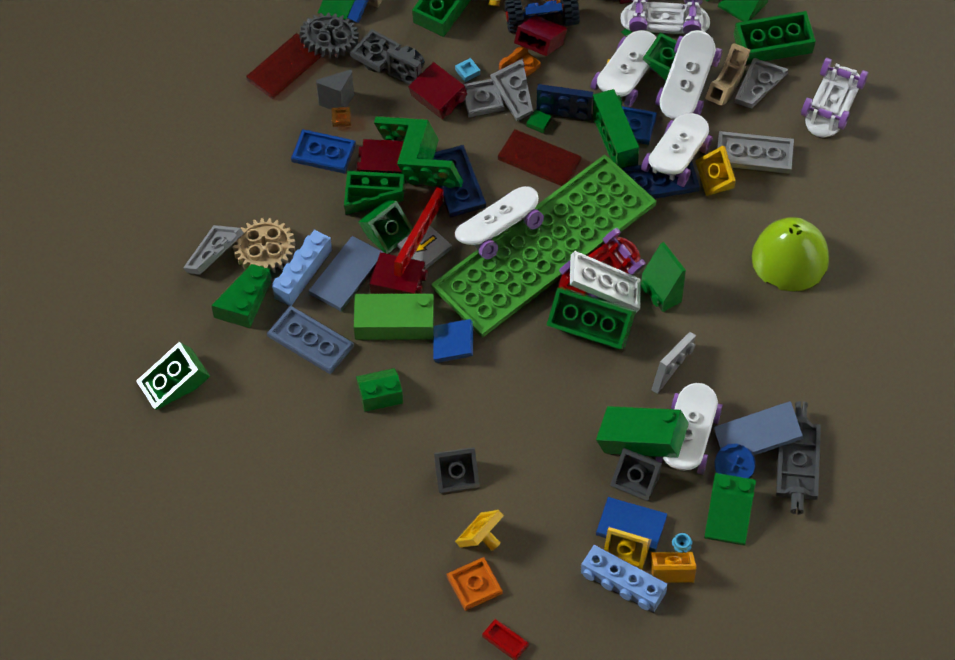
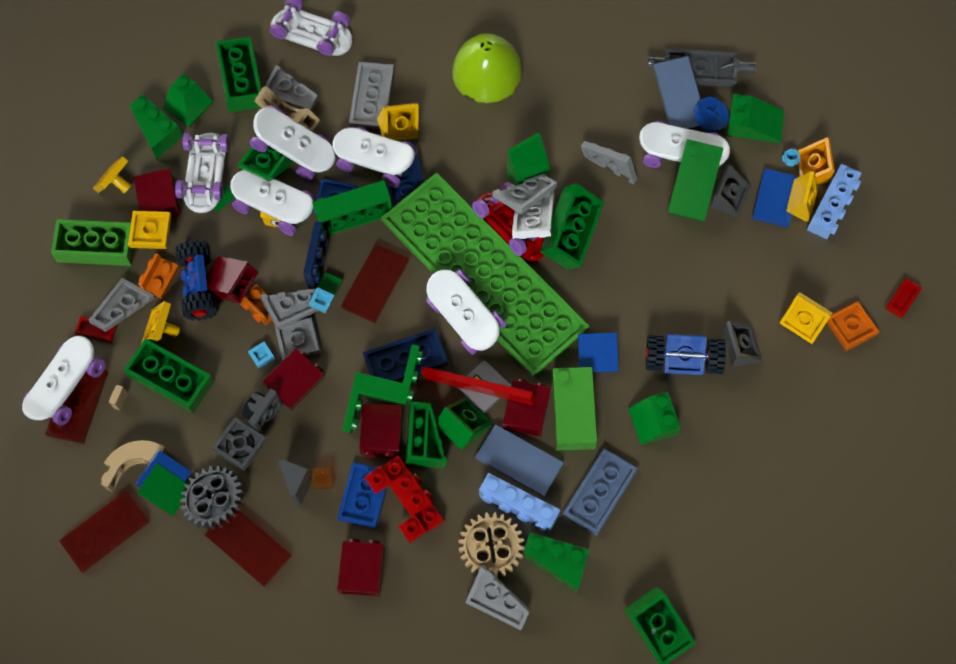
camera: 90 degrees left, 10 degrees up
(253, 146) = (361, 568): none -> dark red brick
(315, 183) = (415, 500): none -> red bracket
(444, 412) = (685, 354): none -> plate
(516, 108) = (321, 300): none -> medium azure plate
(624, 271) = (527, 194): none -> light grey wing

